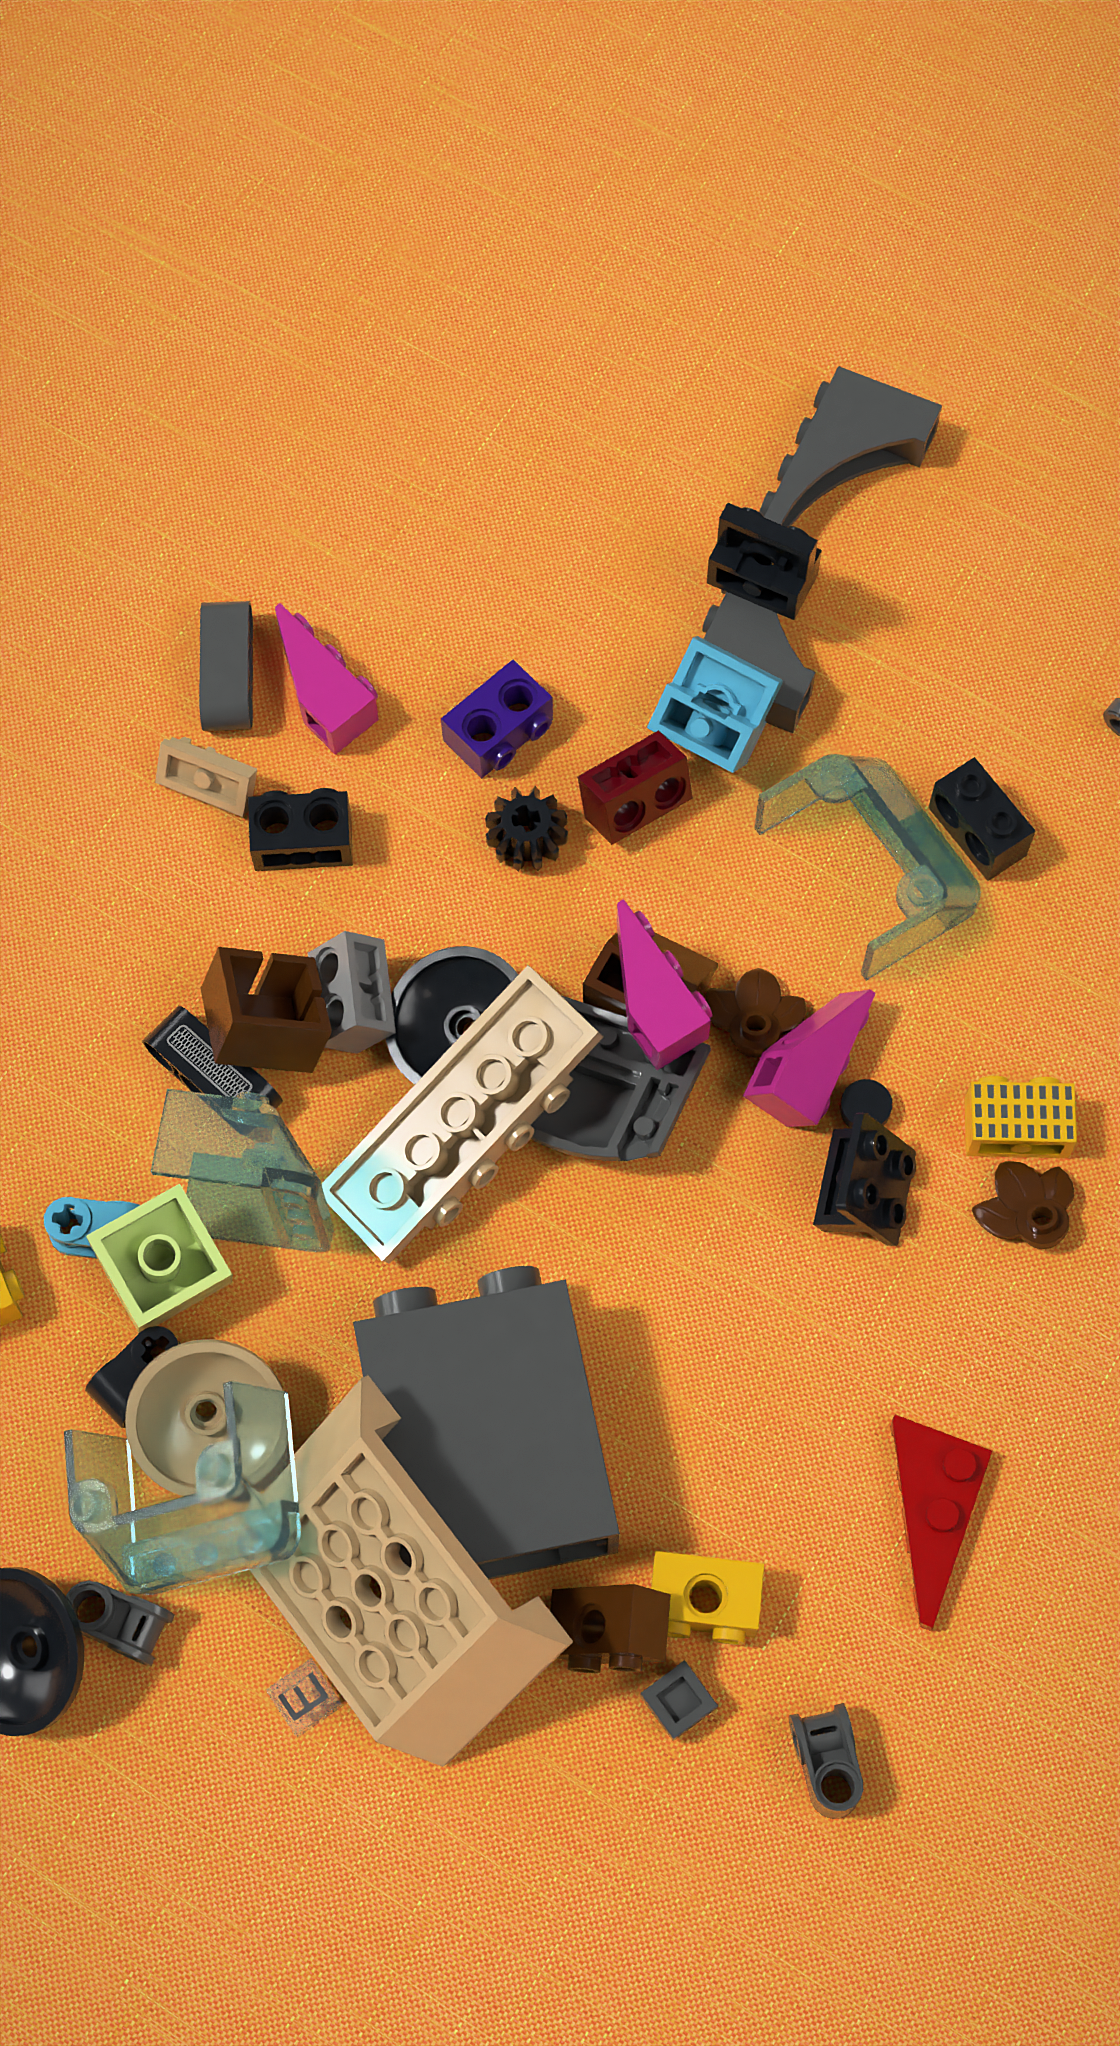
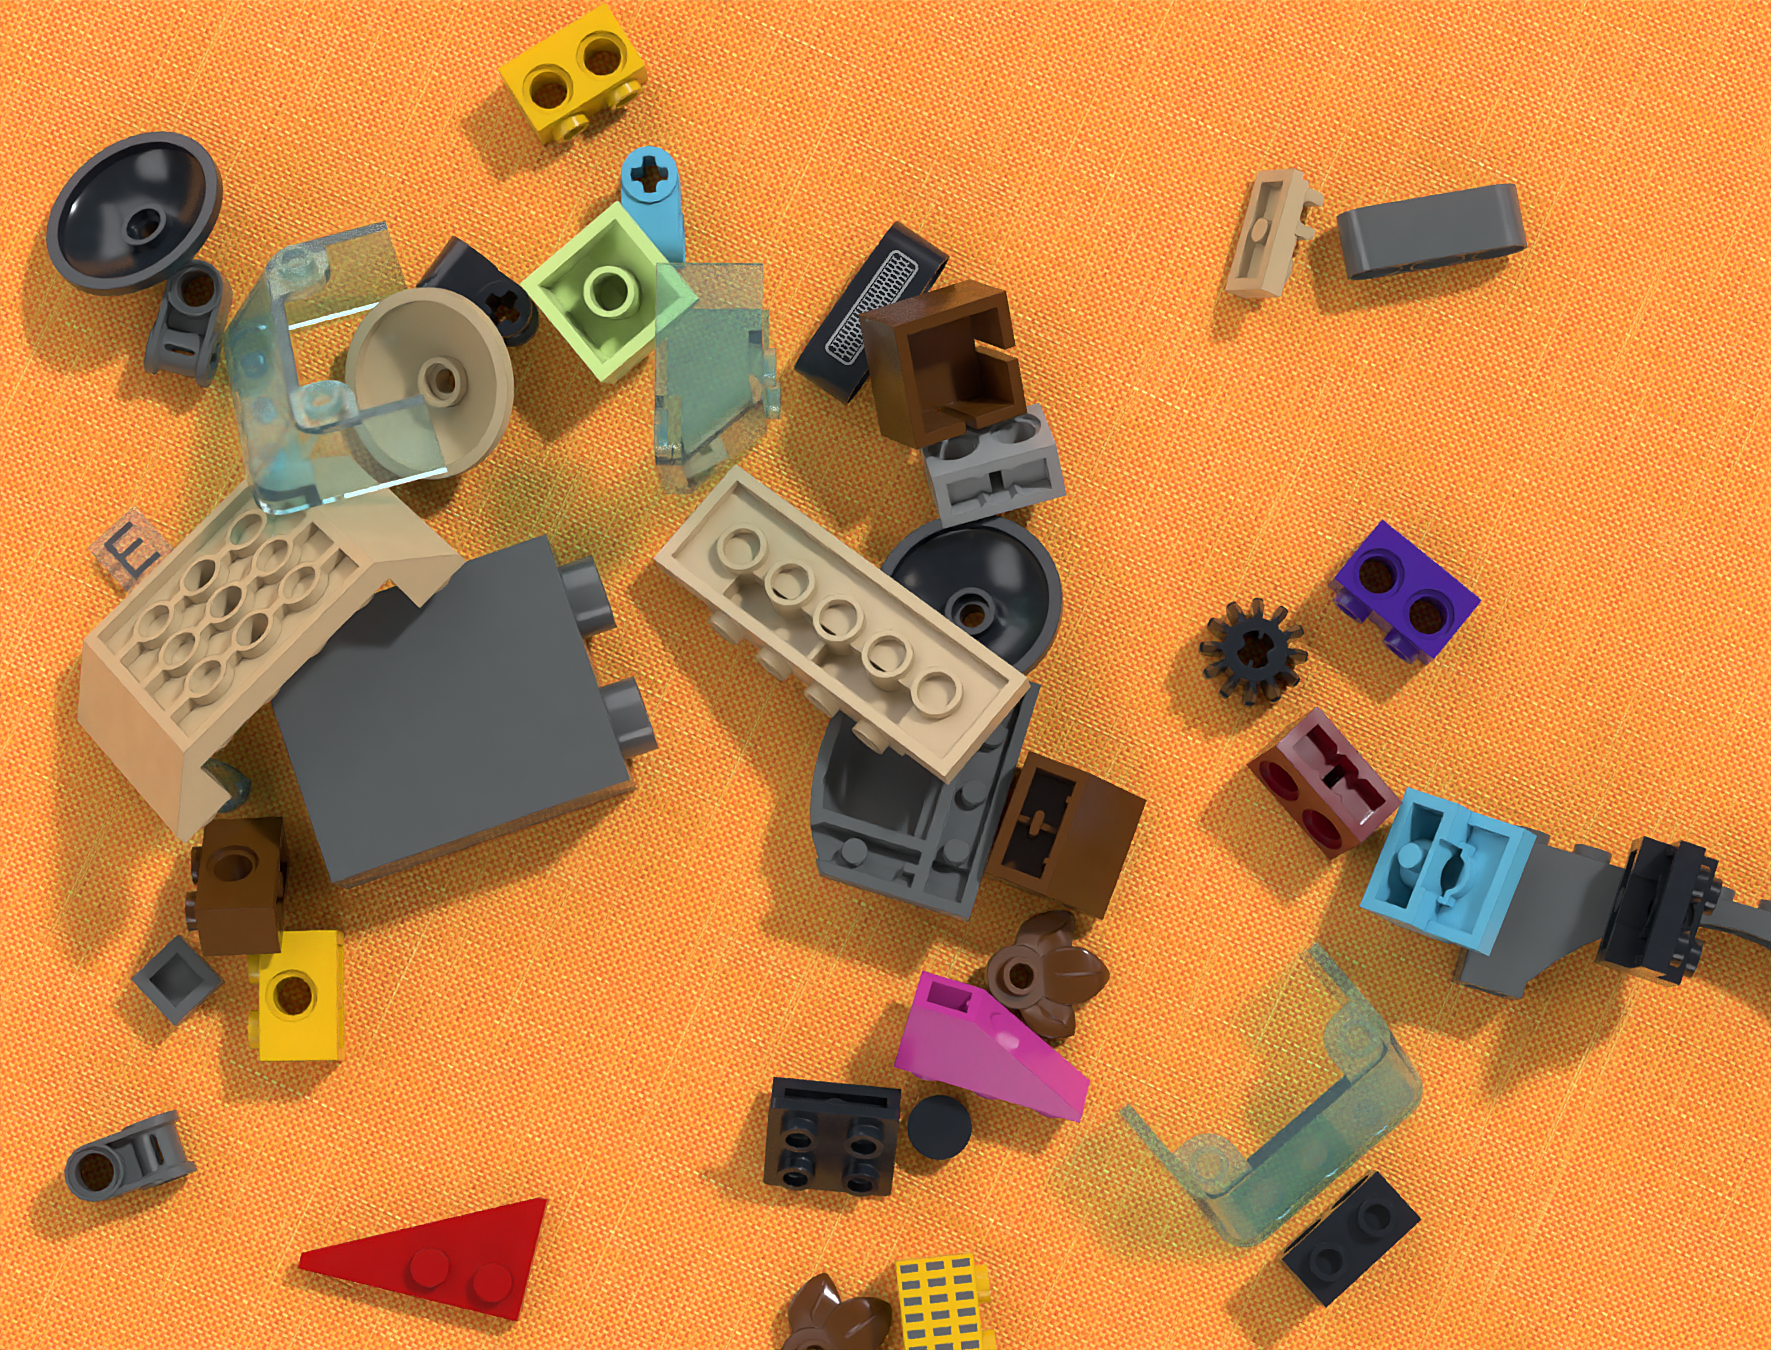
camera: 80 degrees right, 15 degrees up
(300, 843) = (1195, 367): black brick -> none
(328, 695) = (1410, 361): dark pink slope -> none
(658, 1004) = (1006, 841): dark pink slope -> none

